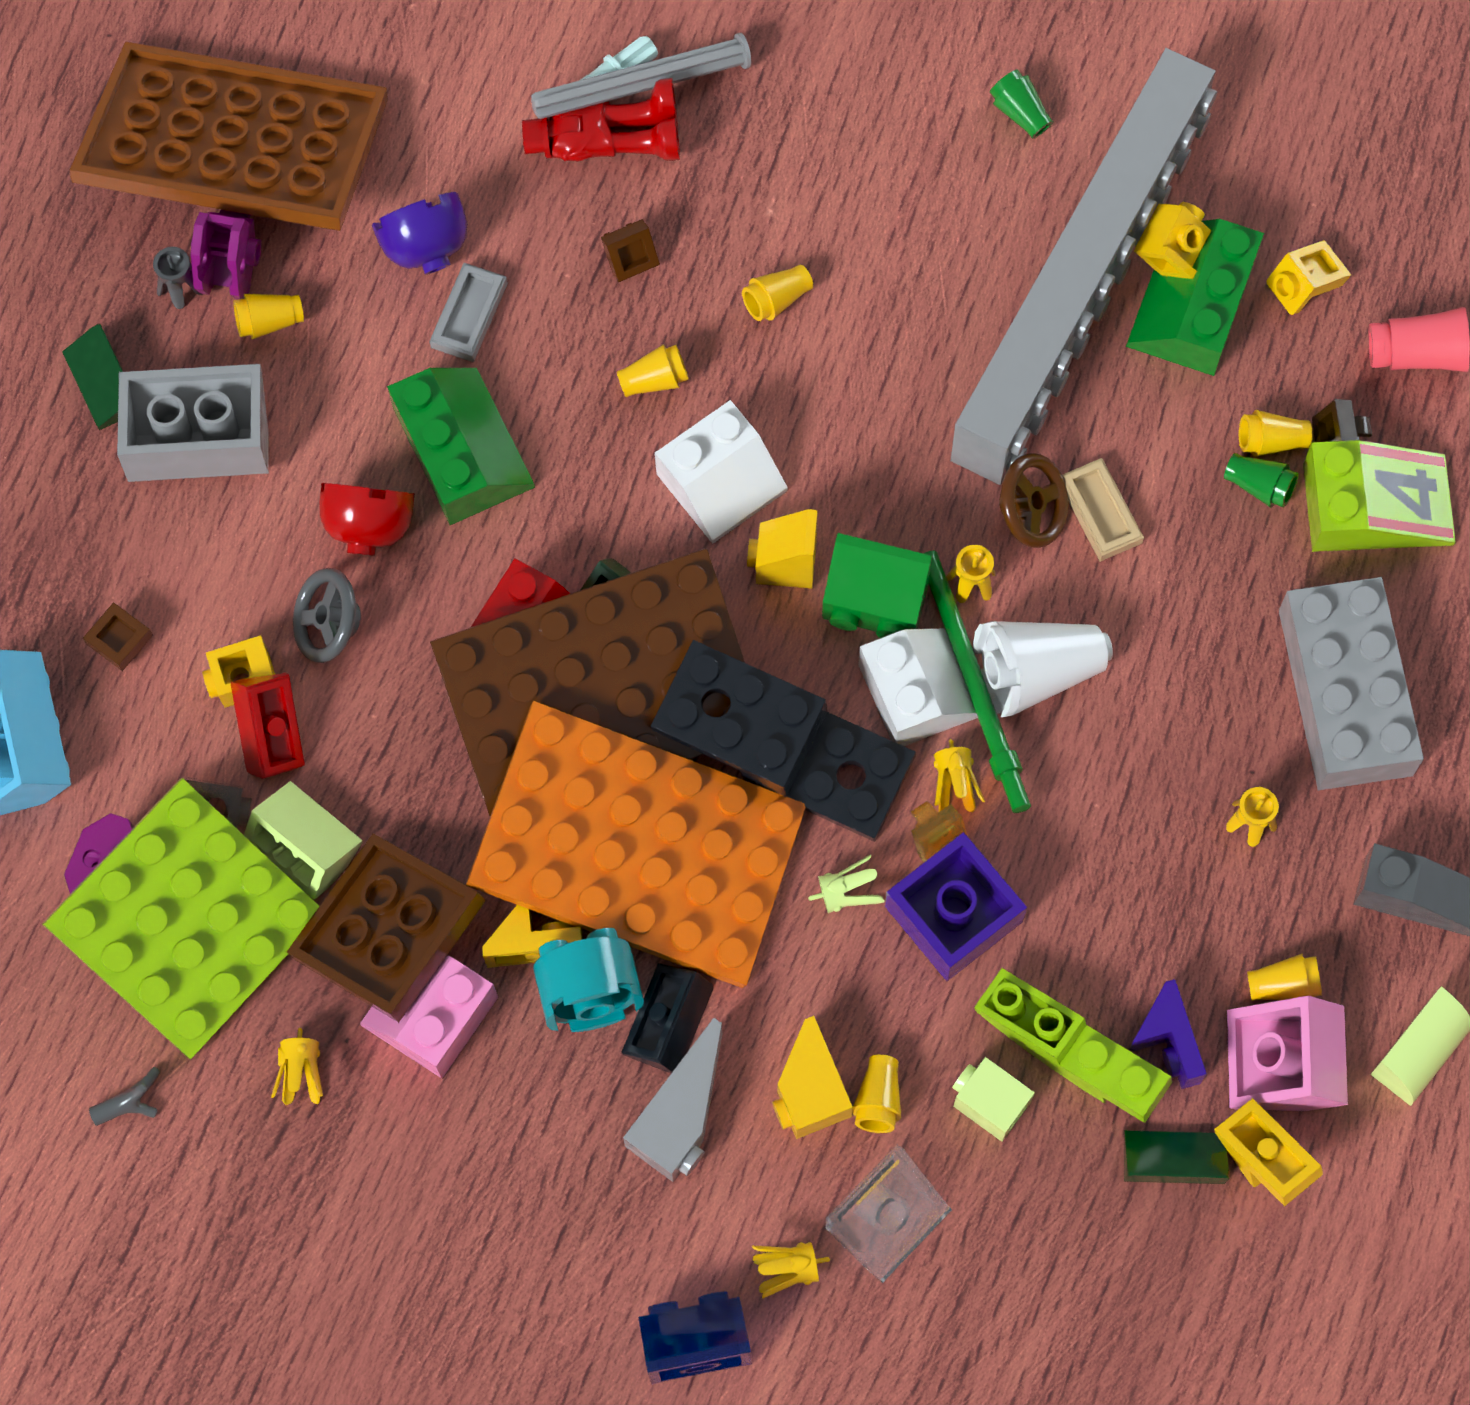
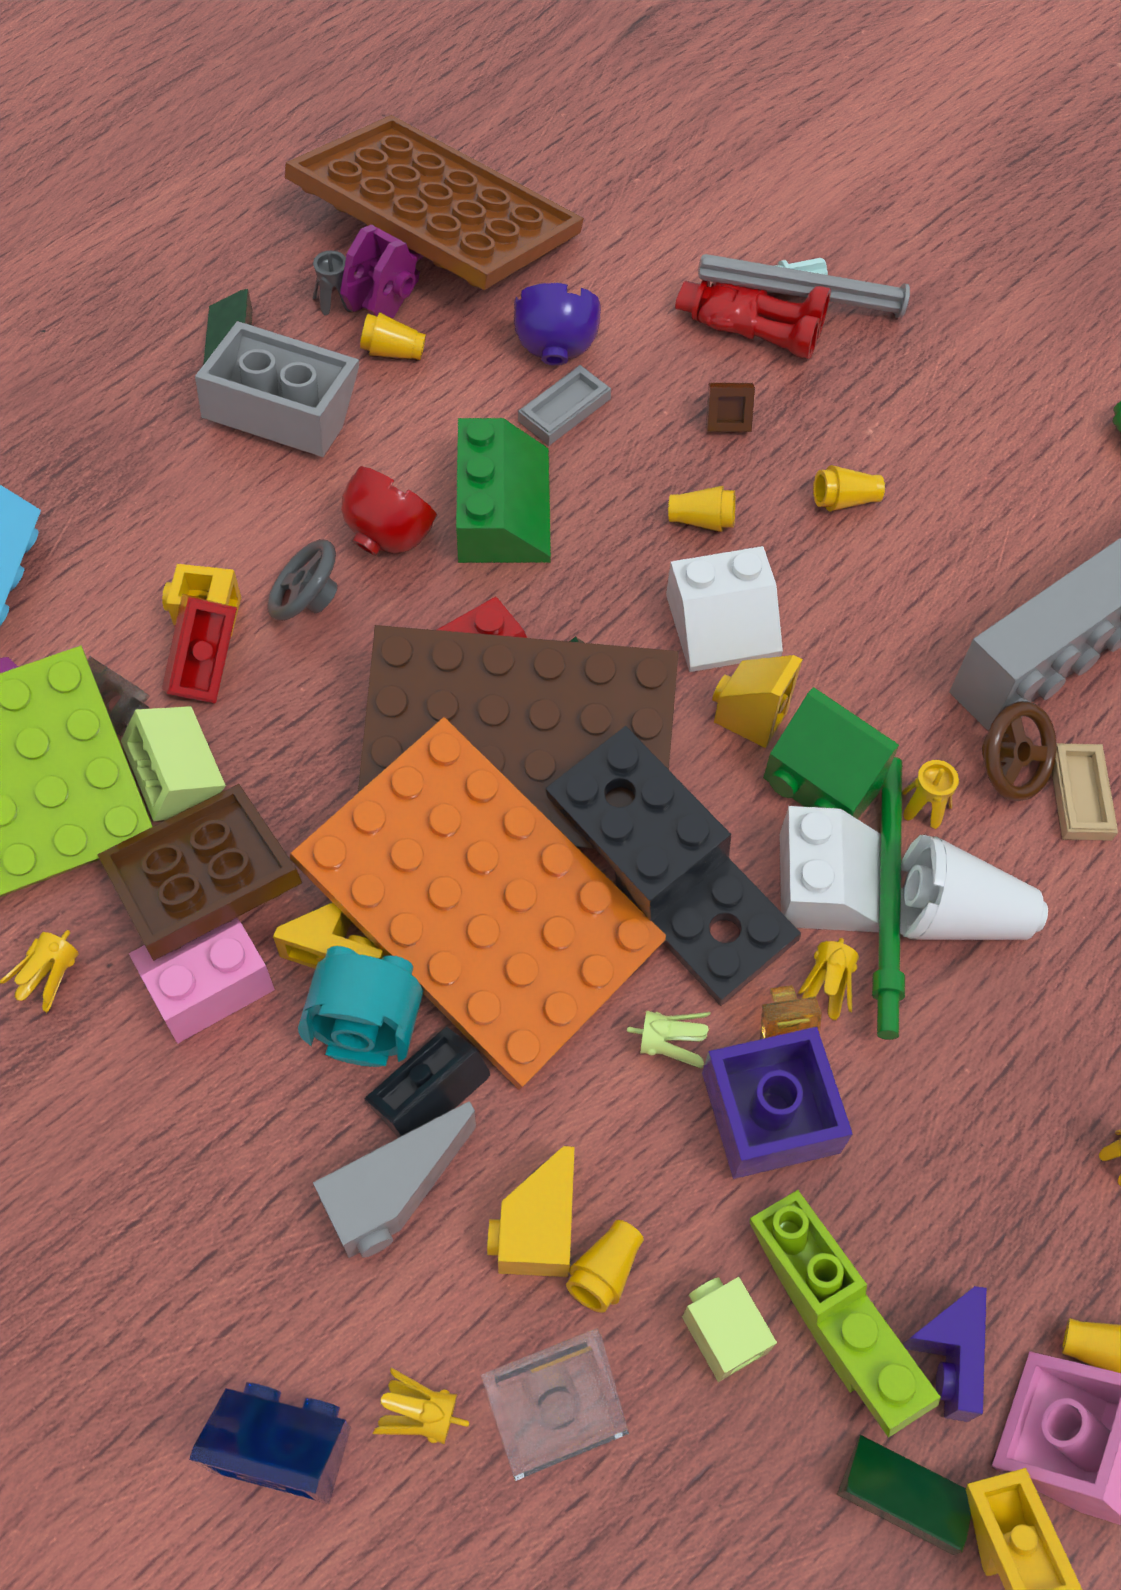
camera: 20 degrees right, 10 degrees down
(117, 636) = (116, 528): reddish brown plate -> none

